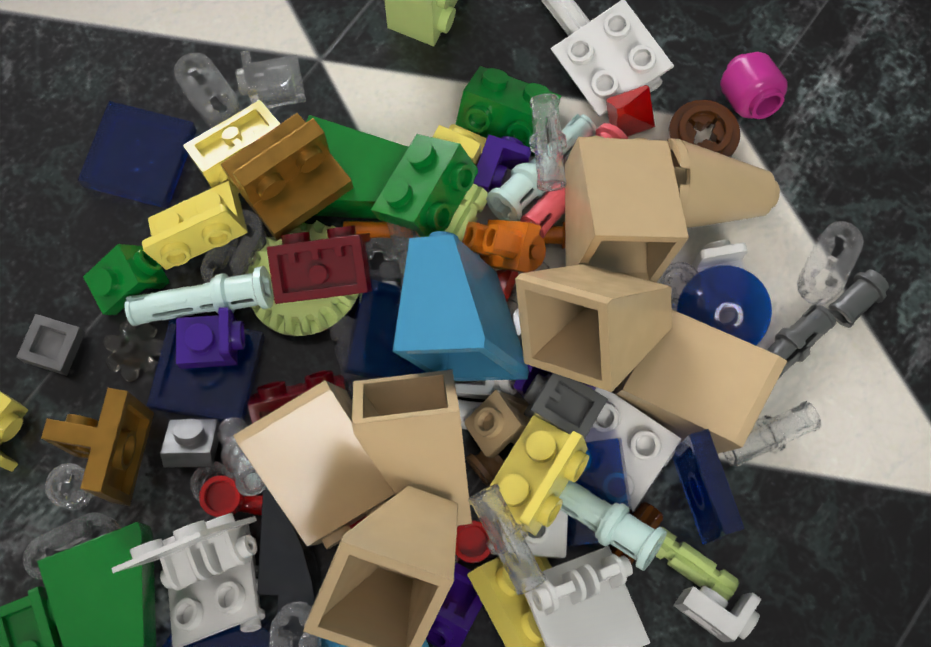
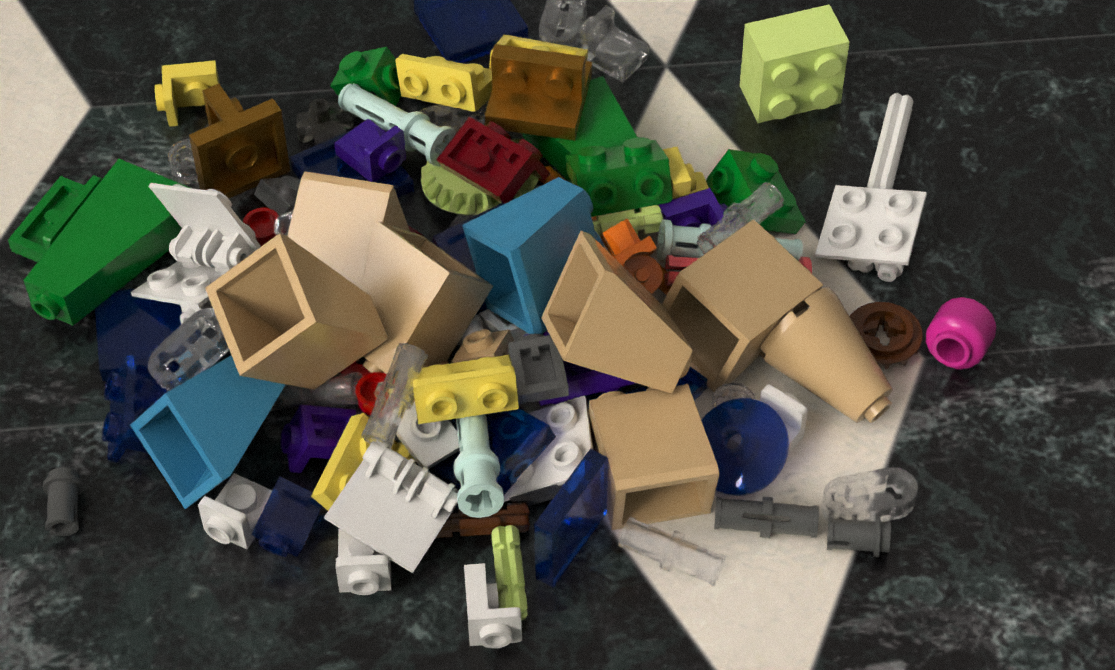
camera: 50 degrees right, 20 degrees down
(51, 344) = (278, 74): flat silver plate -> none
(631, 110) = (841, 270): red slope -> none

